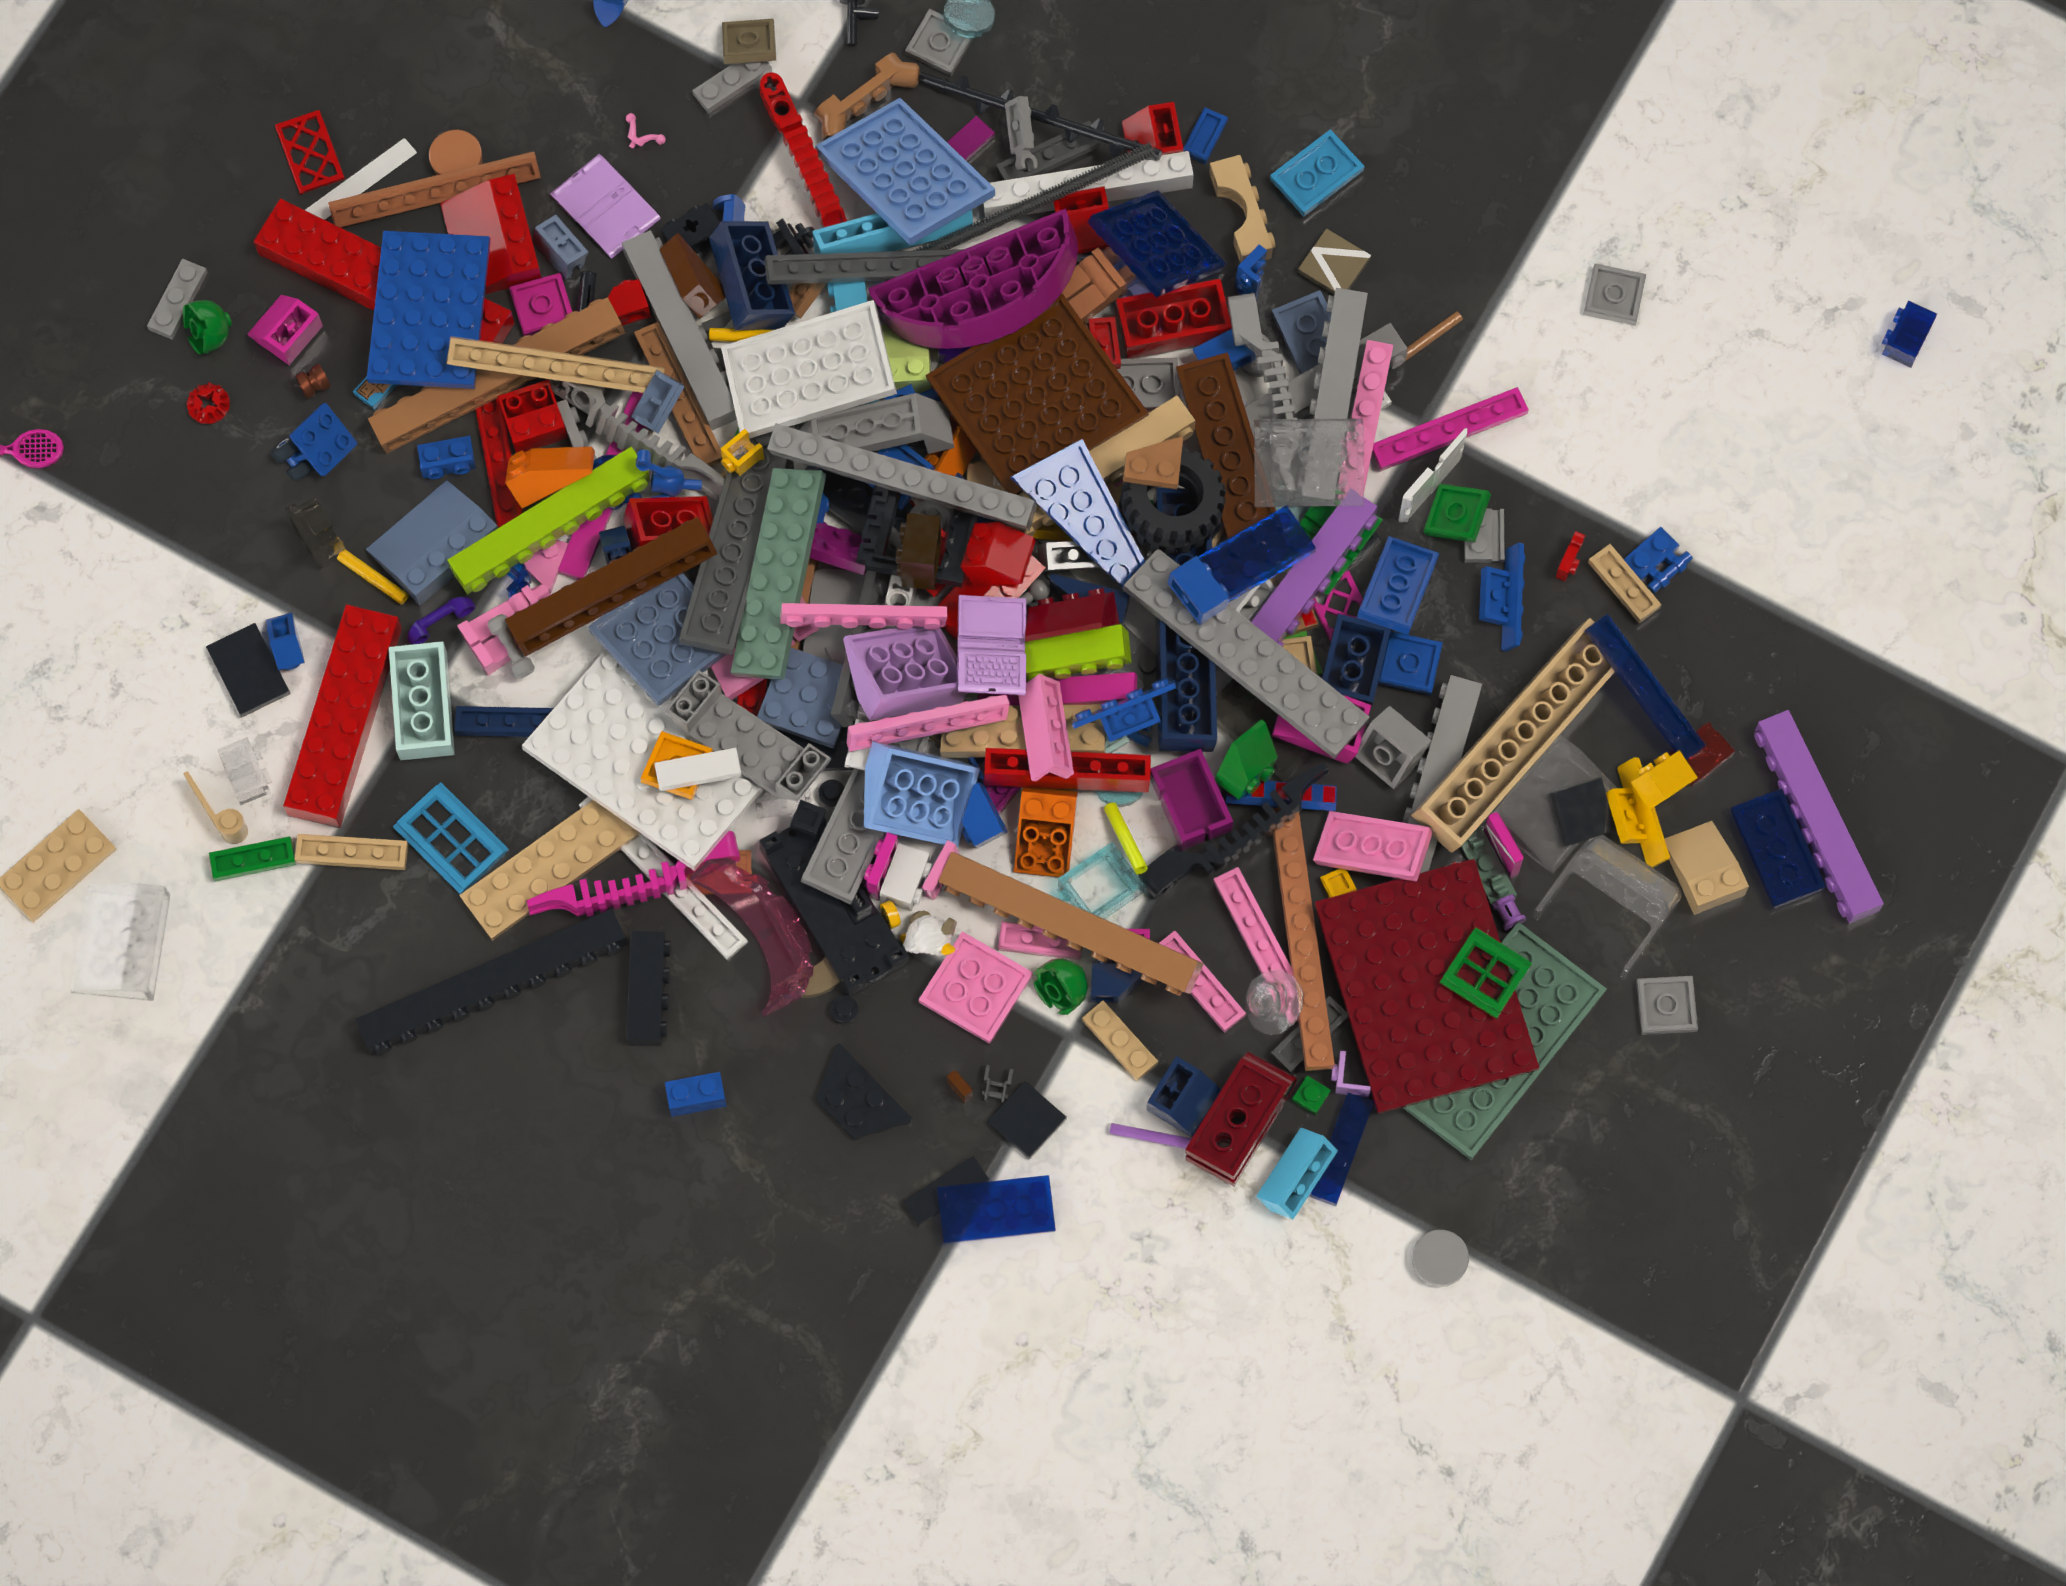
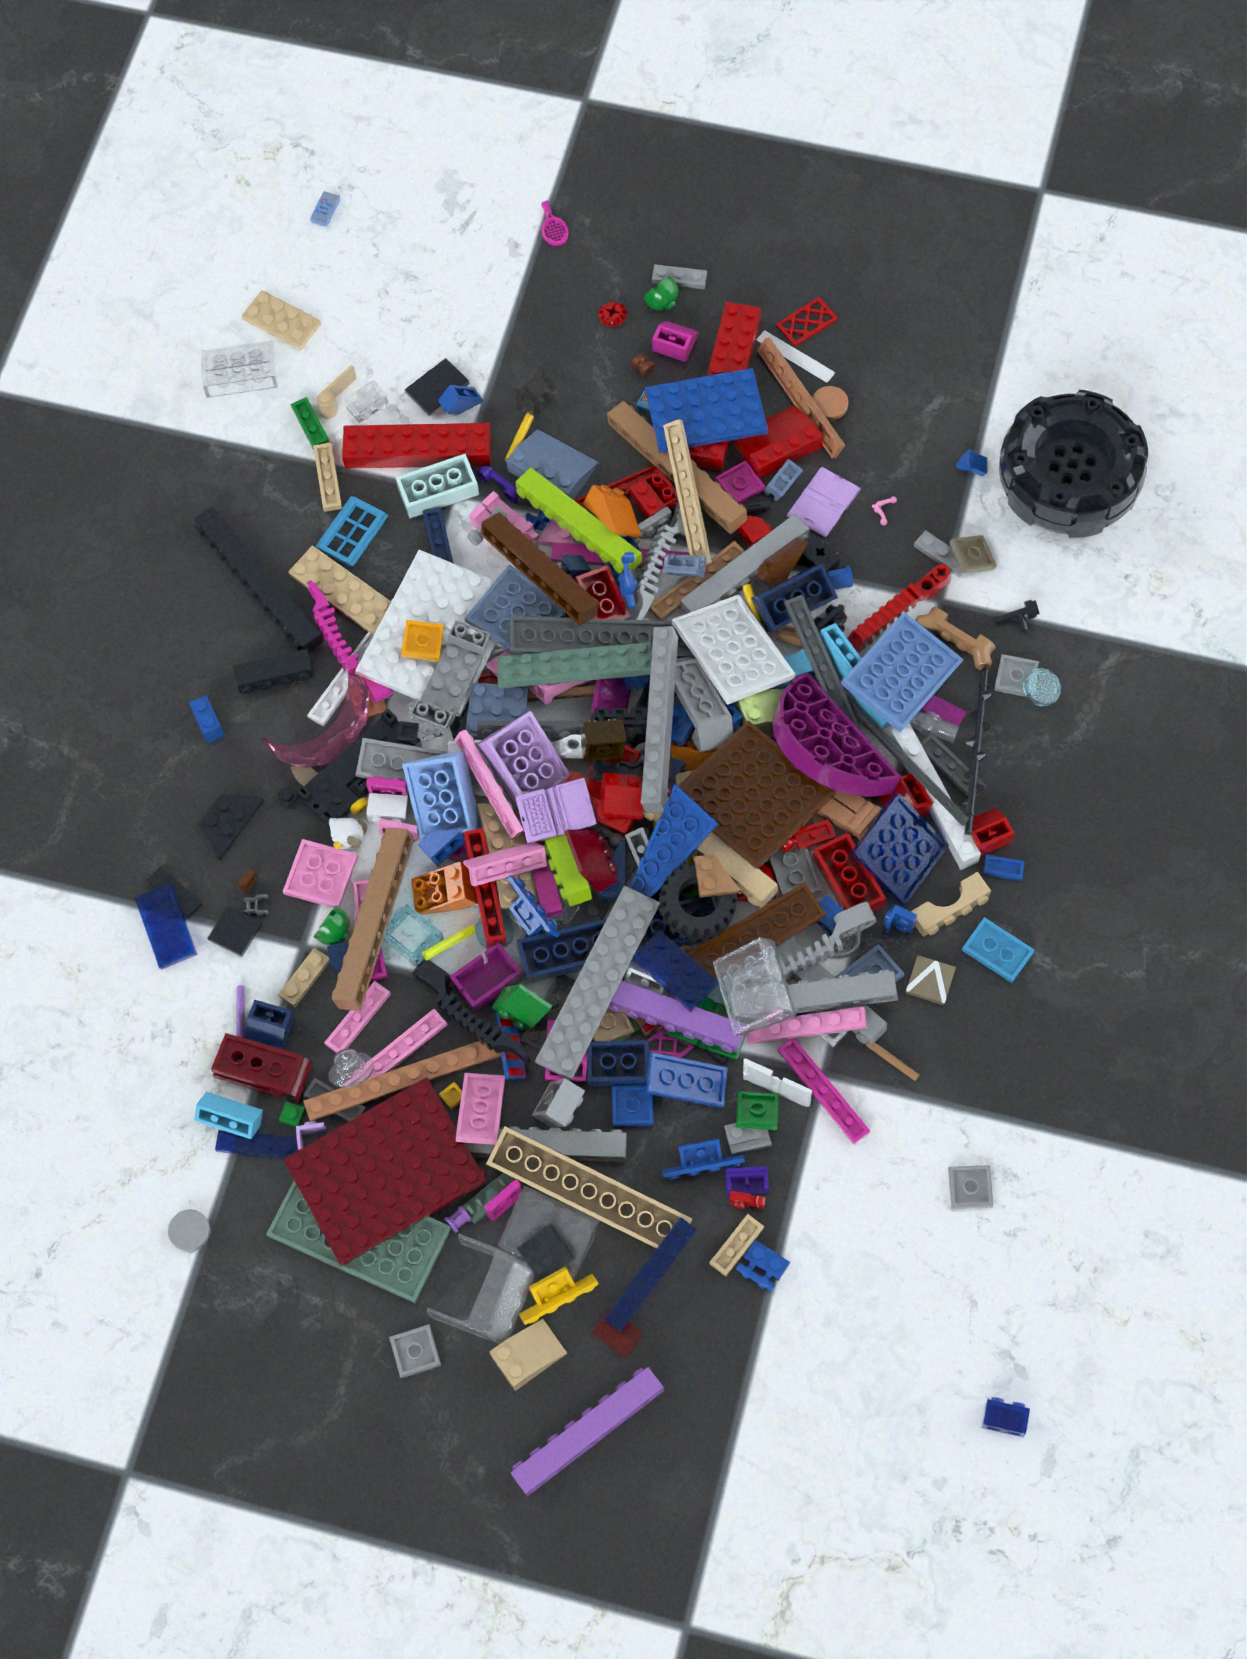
camera: 80 degrees right, 5 degrees down
(315, 444) = (599, 379): blue plate -> none
(446, 457) = (614, 457): blue bracket -> none
(698, 769) = (419, 651): white tile -> none
(740, 453) = (657, 618): yellow window -> none
(830, 792) = (439, 745): black plate -> none
(853, 615) = (553, 729): bright pink plate -> none
(990, 154) = (932, 723): none -> clear piece
(1020, 132) = (954, 741): light grey plate -> none
(1198, 590) = (630, 933): blue brick -> none
(1472, 993) = (415, 1213): green piece -> none
(1545, 550) = (747, 1180): none -> dark purple hinge
(1664, 779) = (583, 1305): yellow brick -> none
(1778, 848) = (555, 1406): clear blue plate -> none

